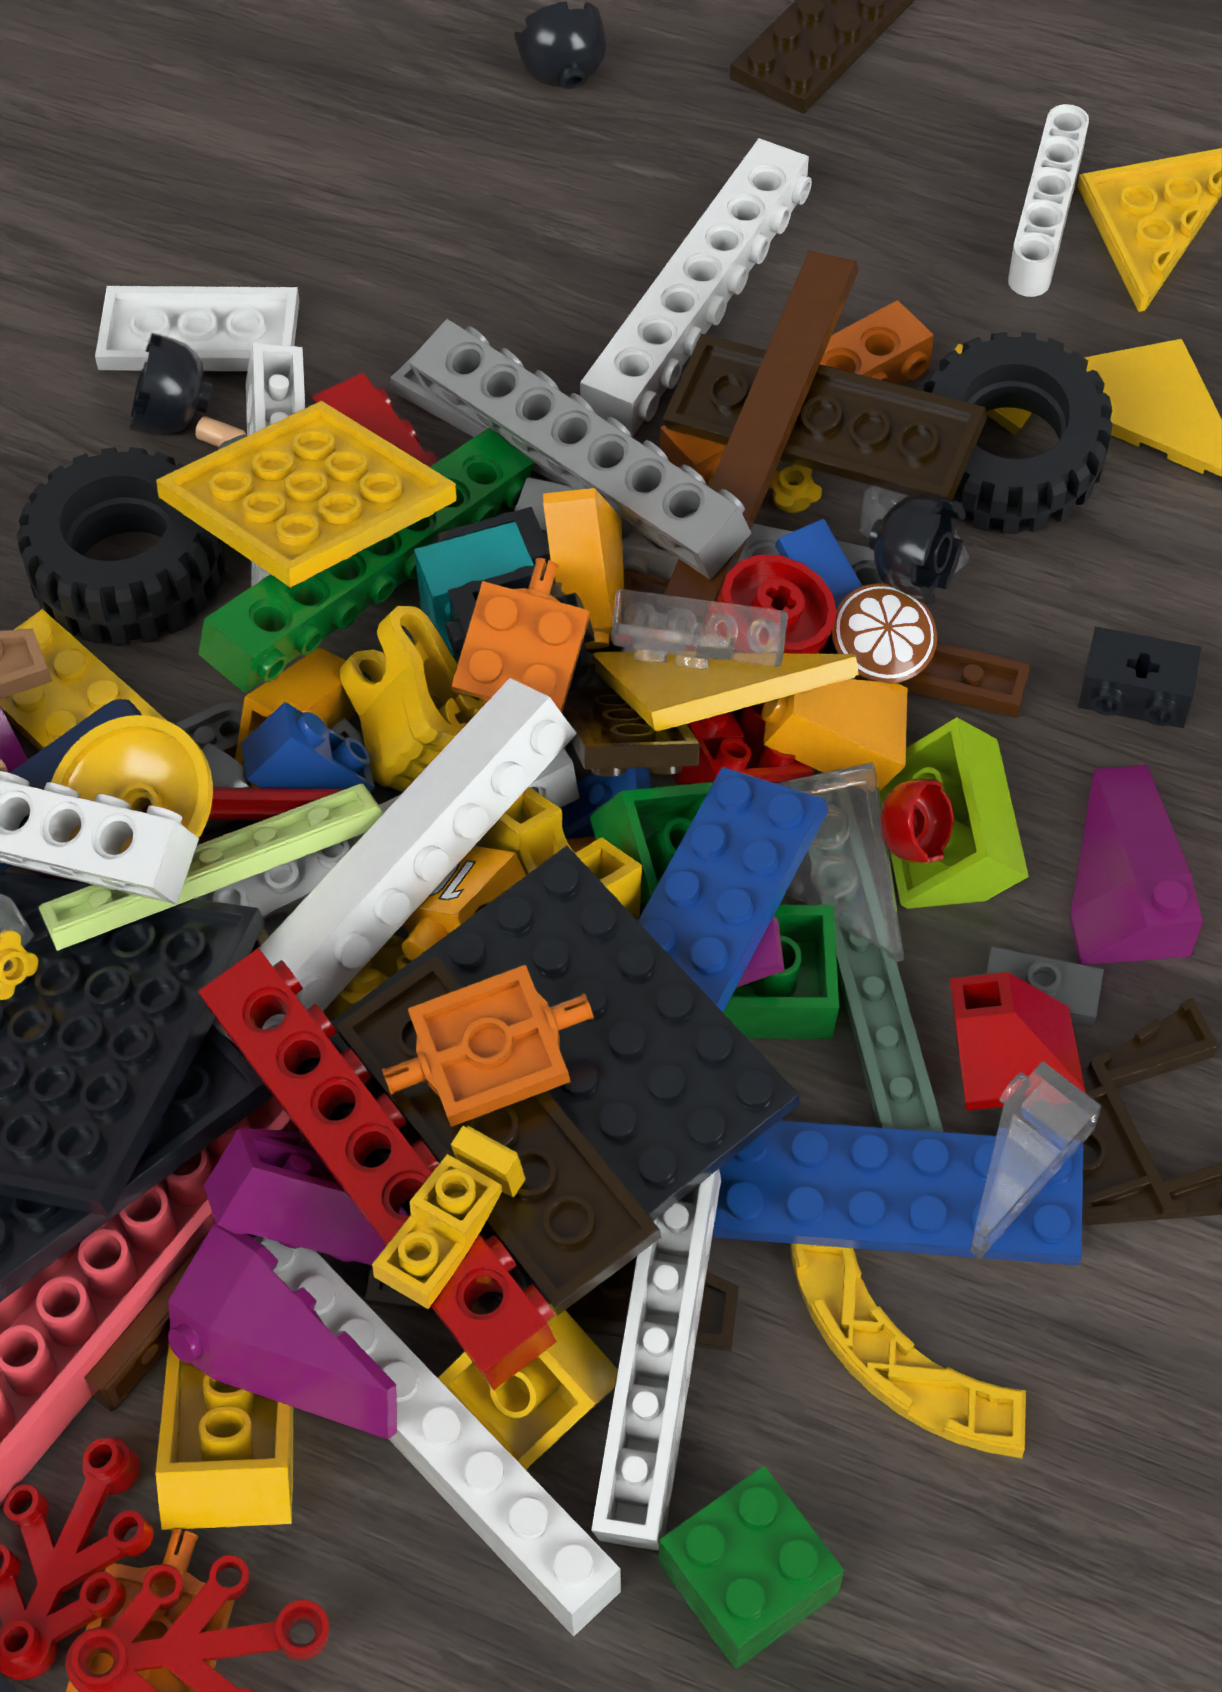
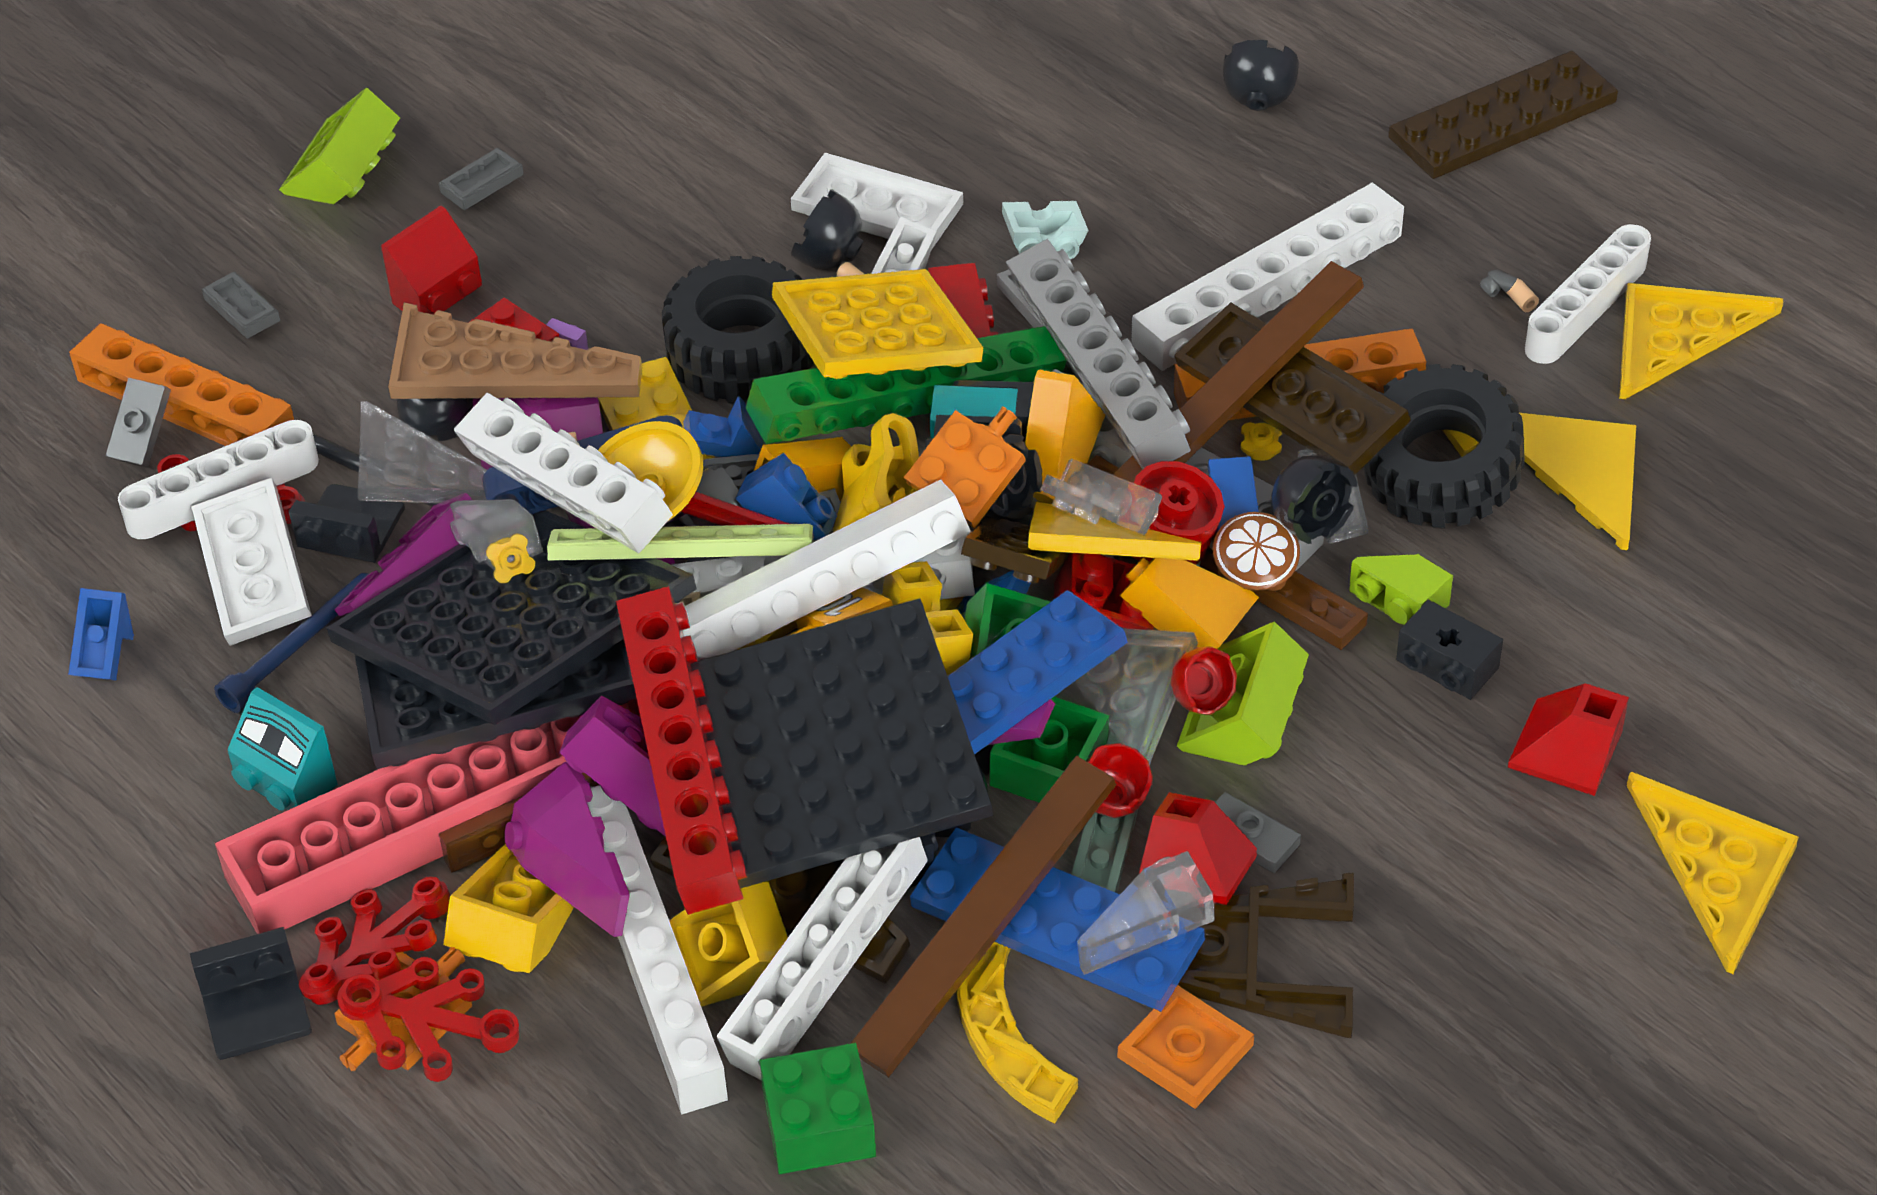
camera: 25 degrees right, 10 degrees down
(175, 690) = (724, 435): none -> blue slope
(418, 303) = (1058, 222): none -> light aqua cylinder
(439, 1232) = (700, 785): yellow slope -> none
(488, 1045) = (786, 692): orange plate -> none
(489, 1159) = (747, 761): yellow tile -> none
(572, 1213) = (769, 756): dark brown plate -> none
(822, 1232) = (982, 916): none -> reddish brown tile
(882, 987) = (1130, 774): none -> red hair
(962, 215) = (1513, 286): none -> arm
(1047, 618) = (1399, 584): none -> lime slope
(1127, 1298) = (1186, 1047): none -> orange plate
(1132, 877) = (1360, 784): magenta wedge -> none

